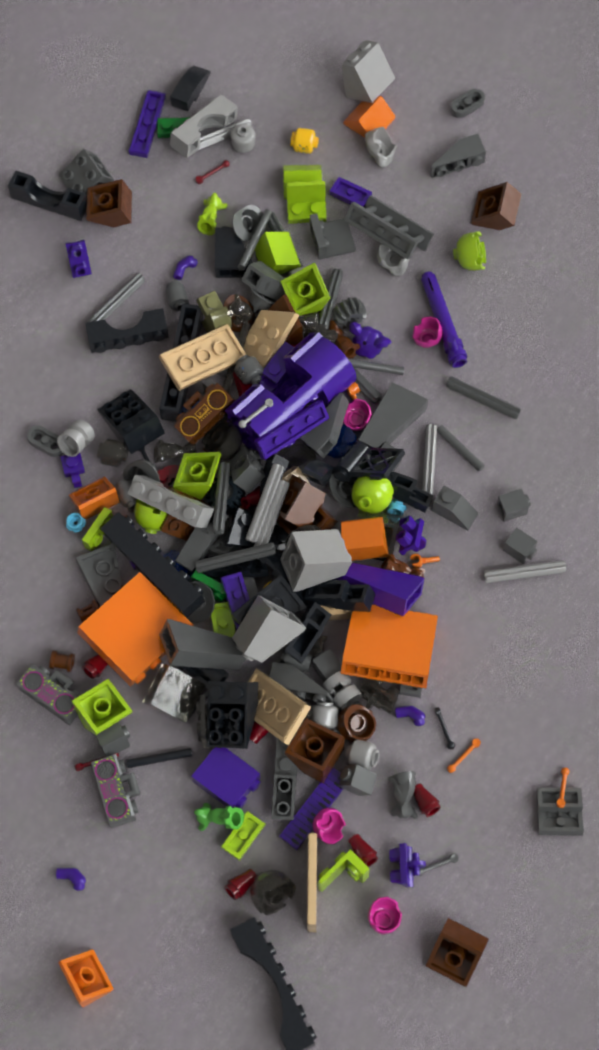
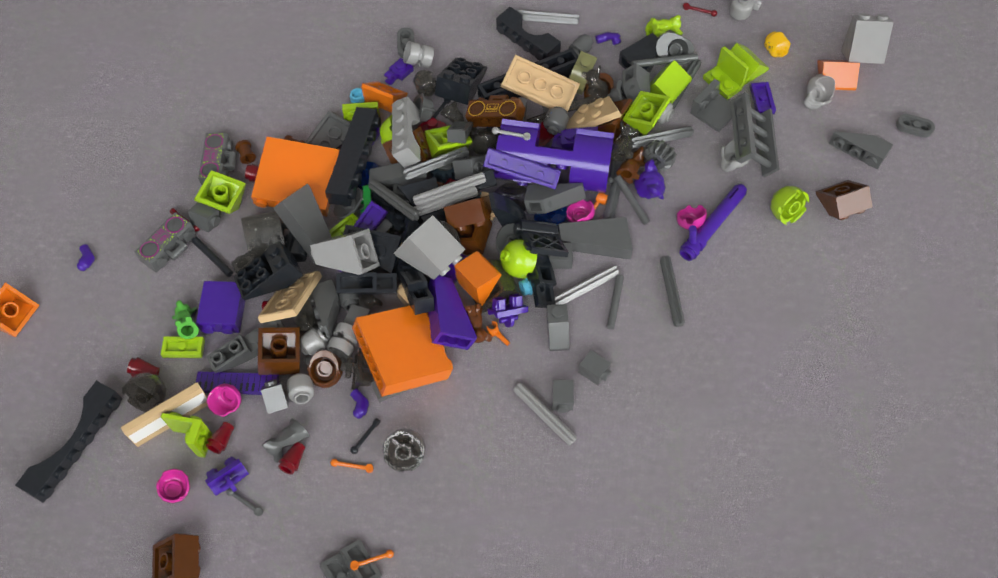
camera: 55 degrees right, 5 degrees down
(203, 456) = (459, 131): none -> dark grey slope
(487, 700) = (404, 450): none -> clear smoke cylinder

